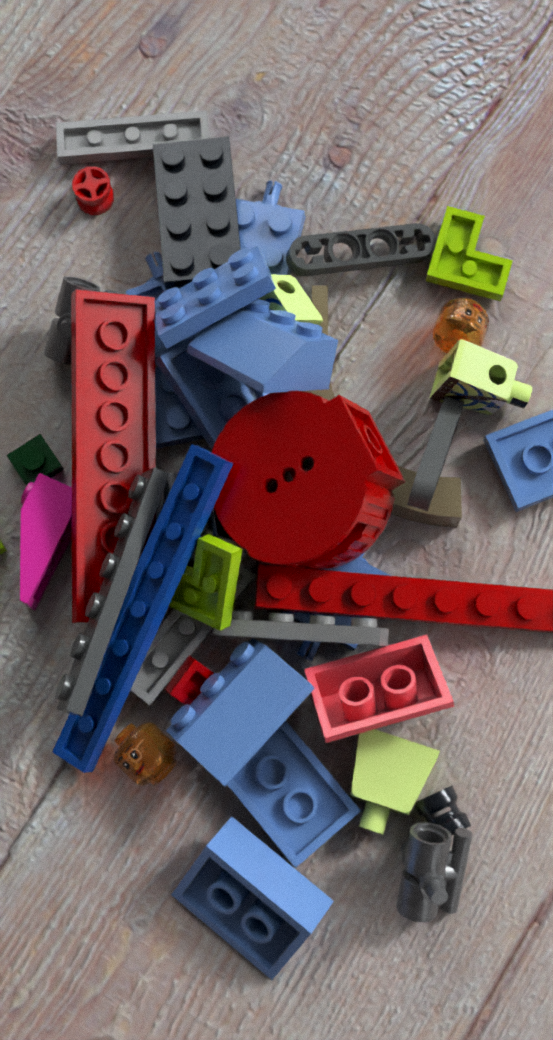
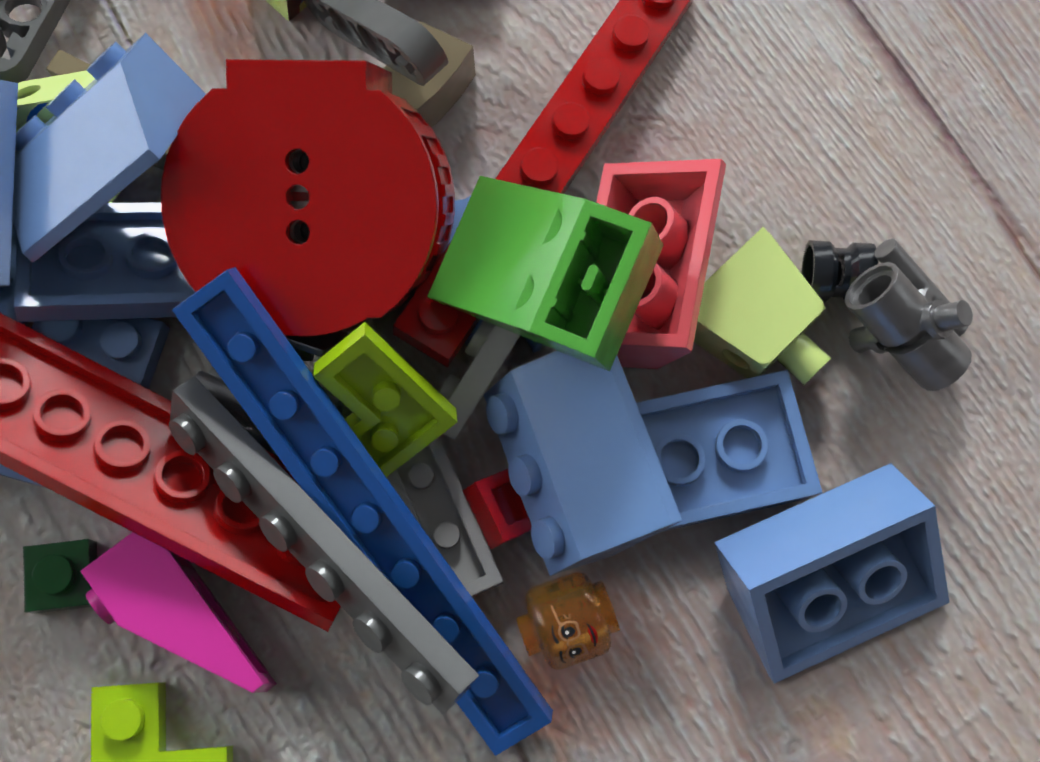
camera: 65 degrees left, 0 degrees up
(325, 635) = (549, 268): none -> bright green slope

